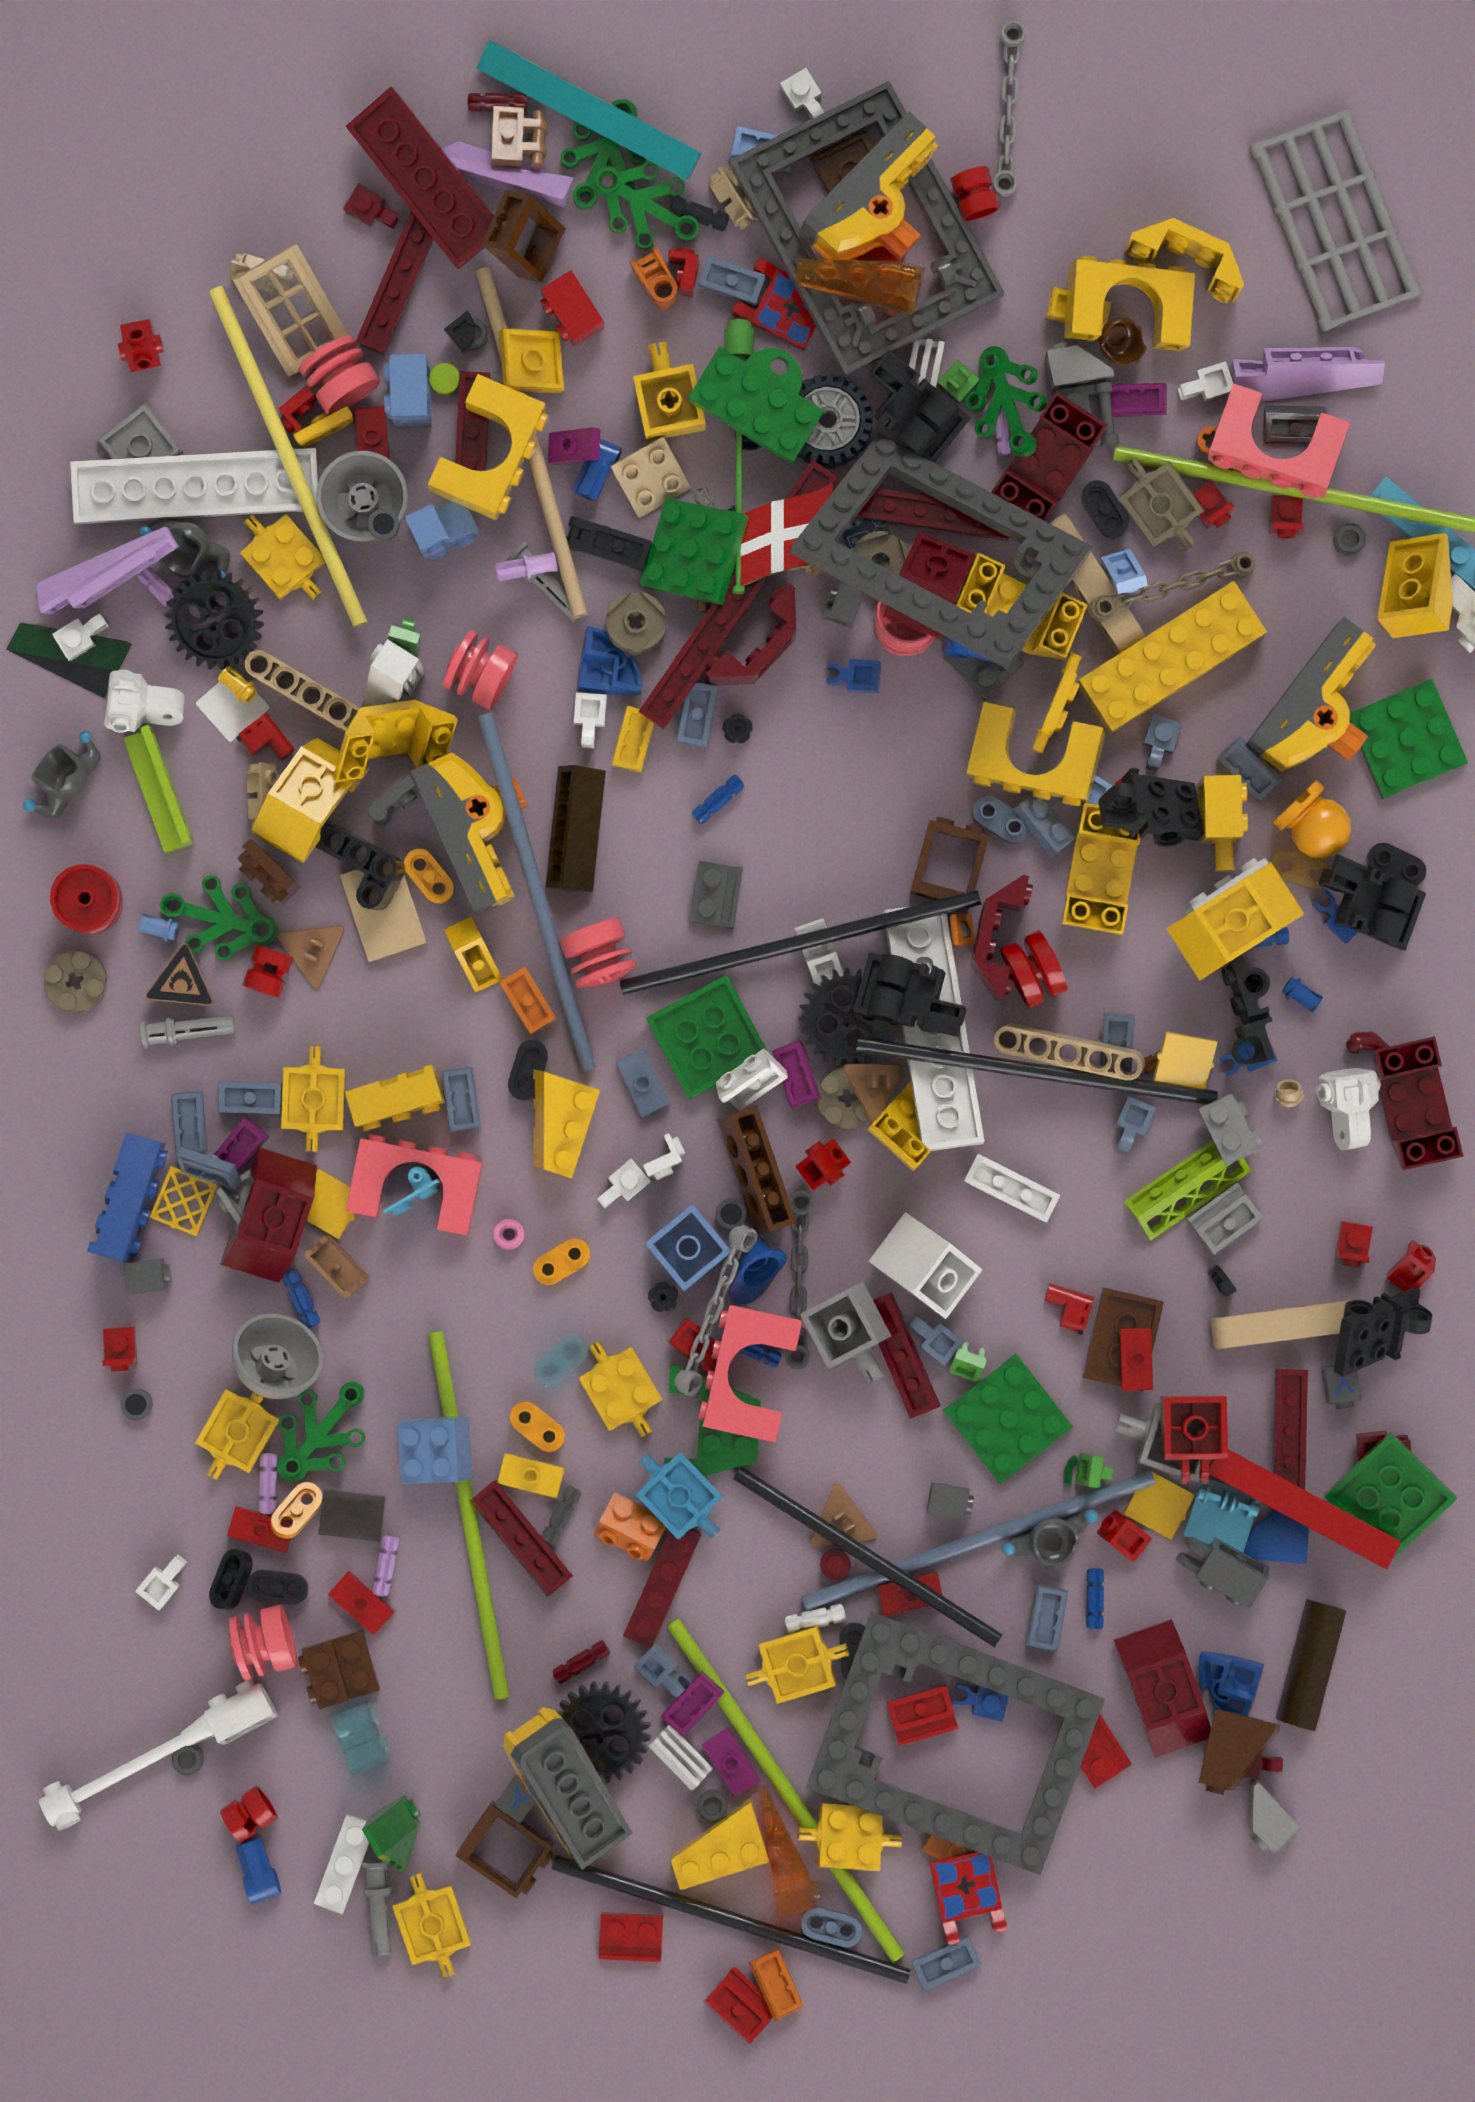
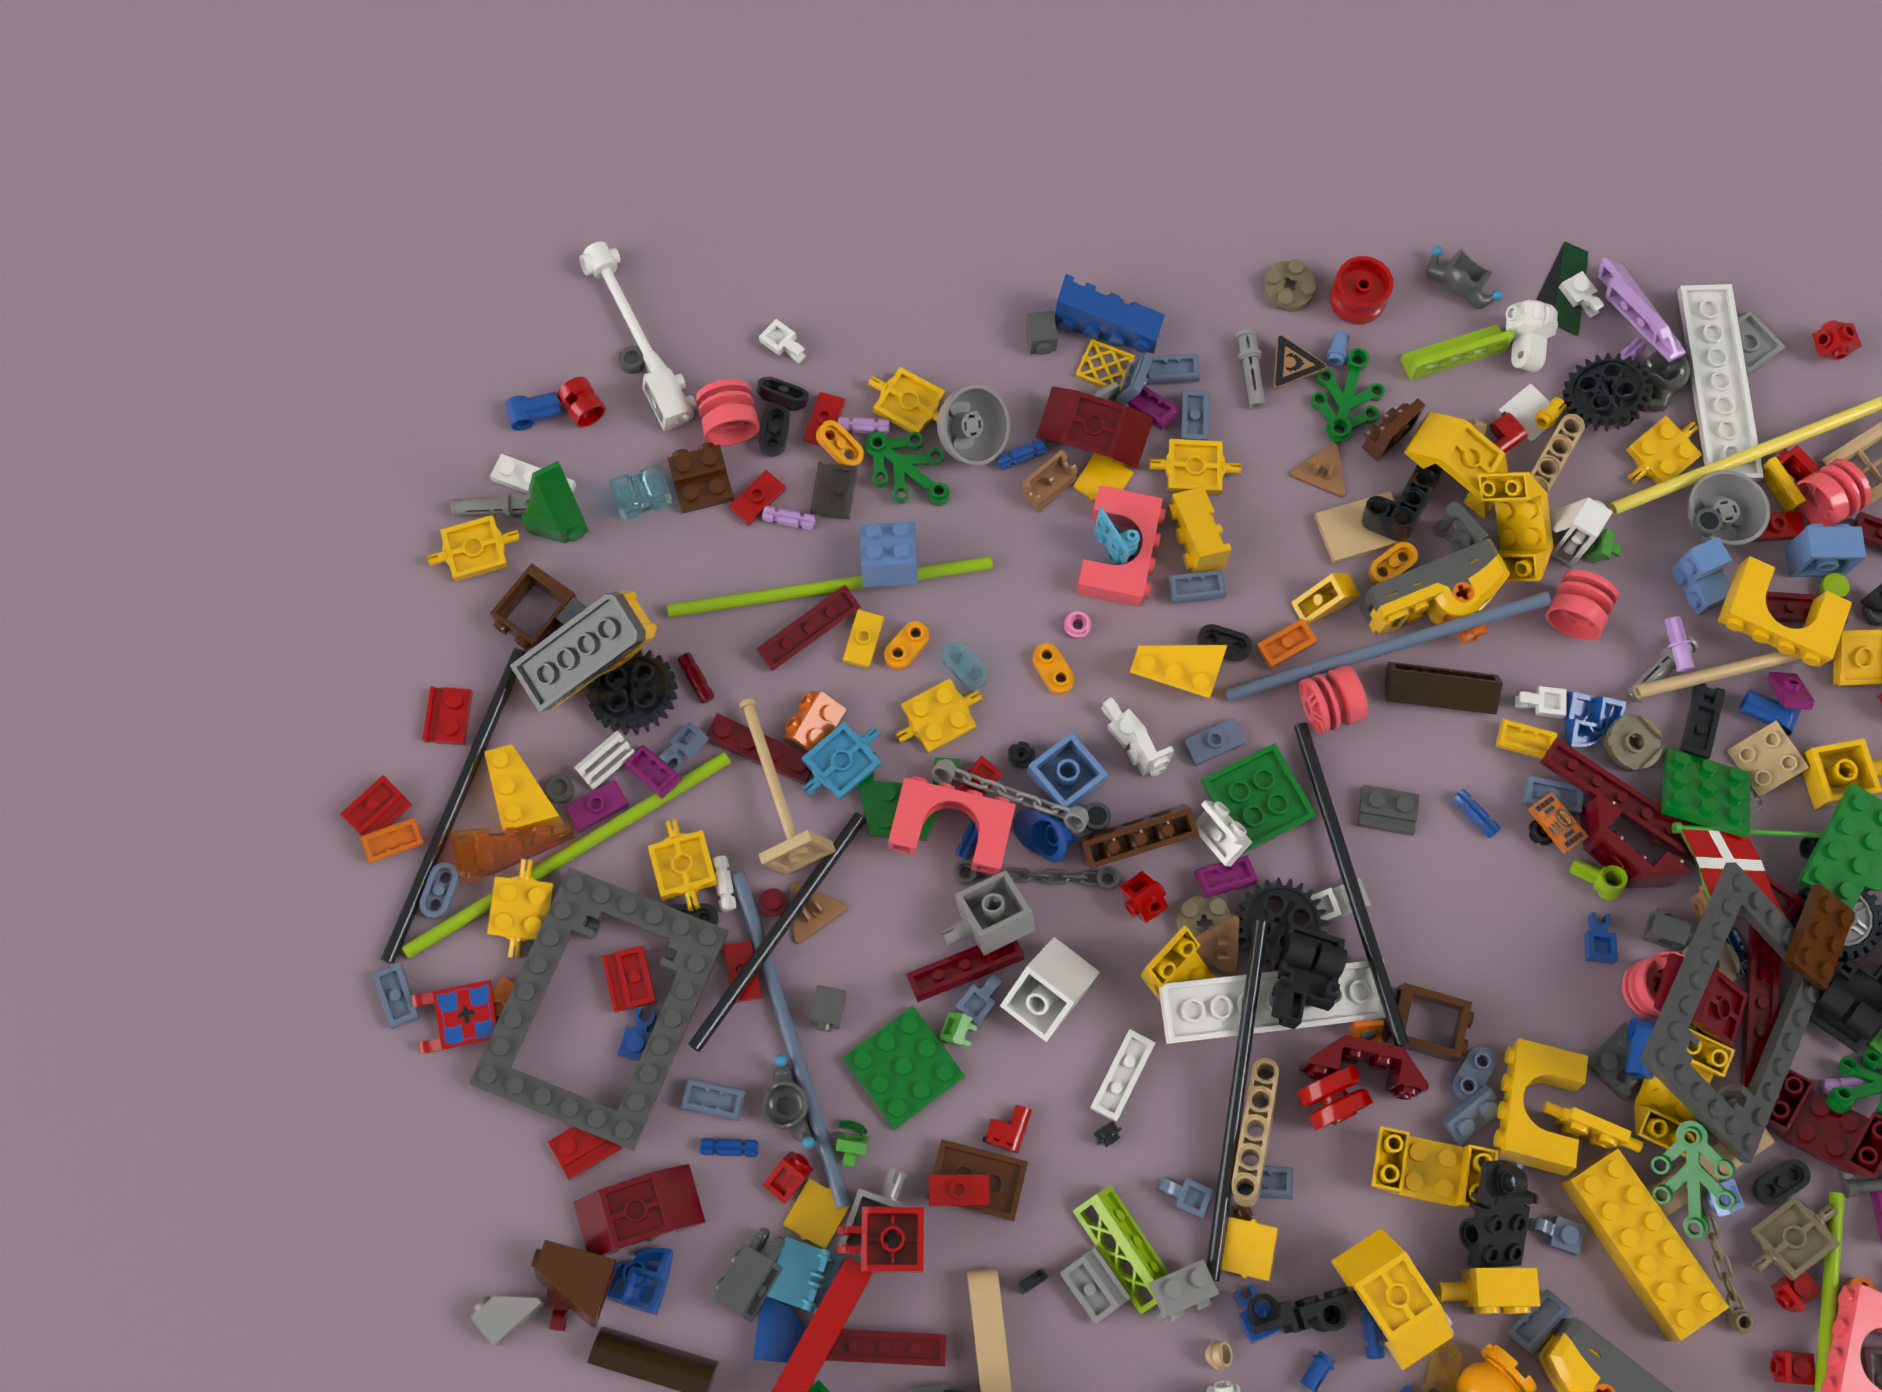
camera: 90 degrees right, 15 degrees down
(119, 1348) = (981, 313): red bracket -> none
(136, 1404) = (933, 325): tile -> none
(263, 981) = (1295, 426): red wheel -> none
(561, 1514) = (827, 663): dark grey axle -> none
(731, 714) = (1558, 823): none -> tile
(783, 1542) = (797, 849): none -> tan tile
(787, 674) = (1600, 876): none -> lime axle
(855, 451) = (1819, 936): none -> reddish brown plate
(1072, 1204) = (1107, 1134): none -> black plate
(1108, 606) = (1694, 1174): none -> plant

